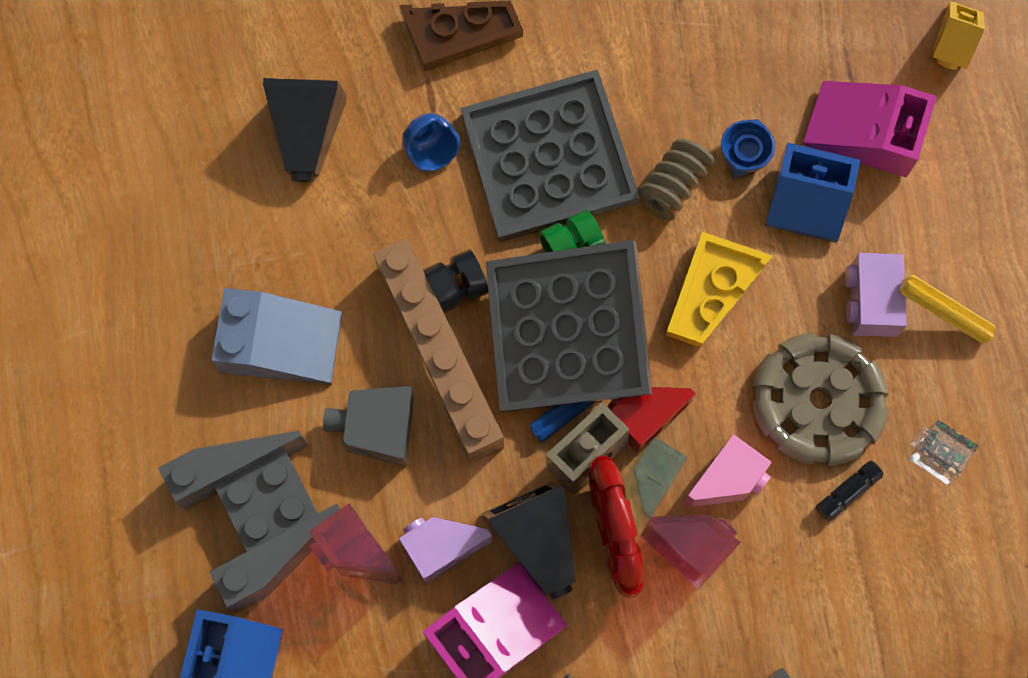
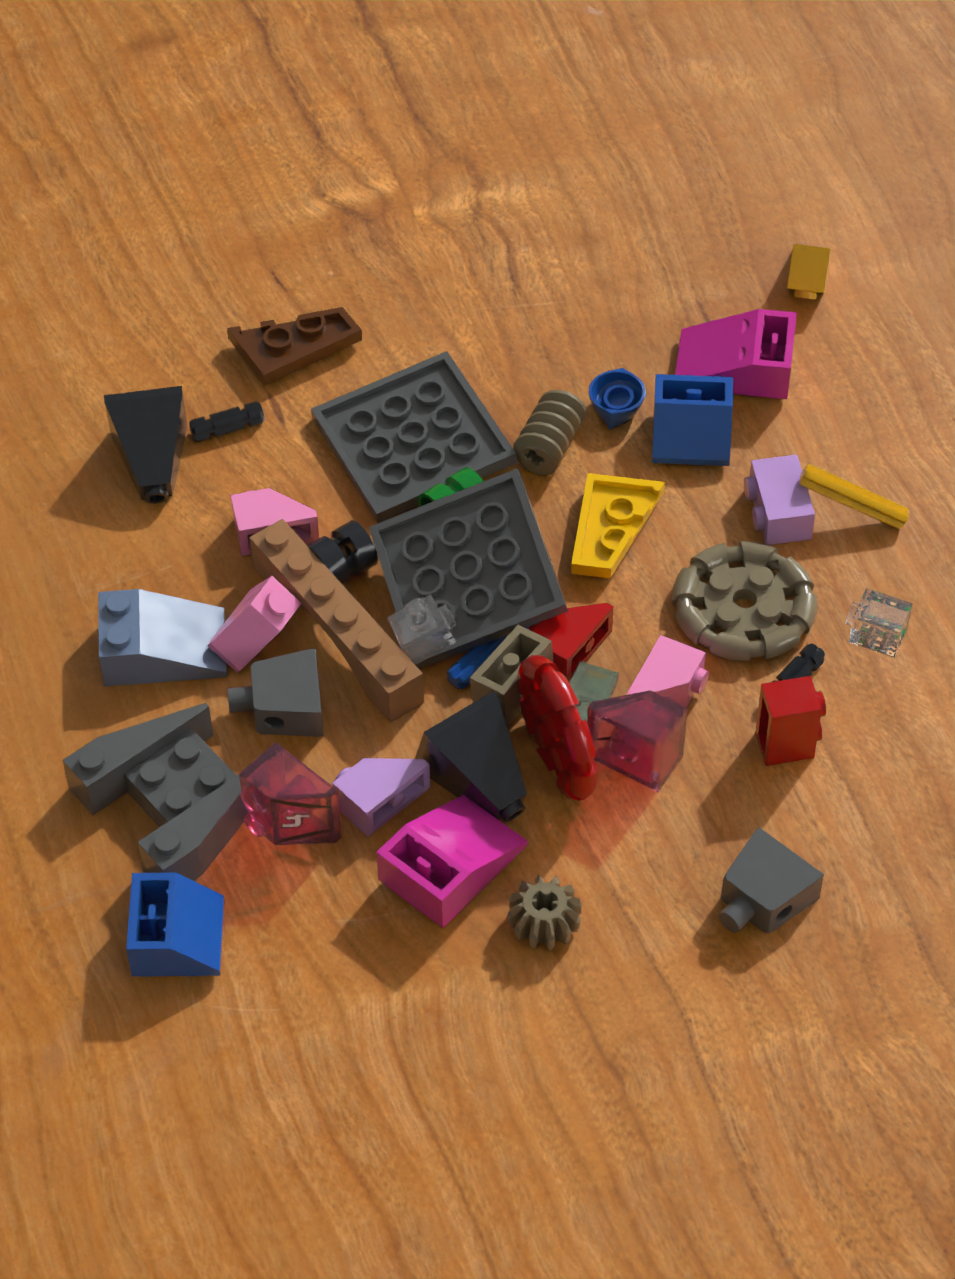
camera: 10 degrees left, 20 degrees down
(362, 342) = (254, 623): none -> bright pink slope
(381, 105) = (226, 421): none -> black axle
(394, 220) = (264, 507): none -> bright pink slope
(430, 142) = (286, 439): blue hair -> none
(513, 386) = (423, 628): none -> clear brick
(835, 554) = (789, 720): none -> red brick

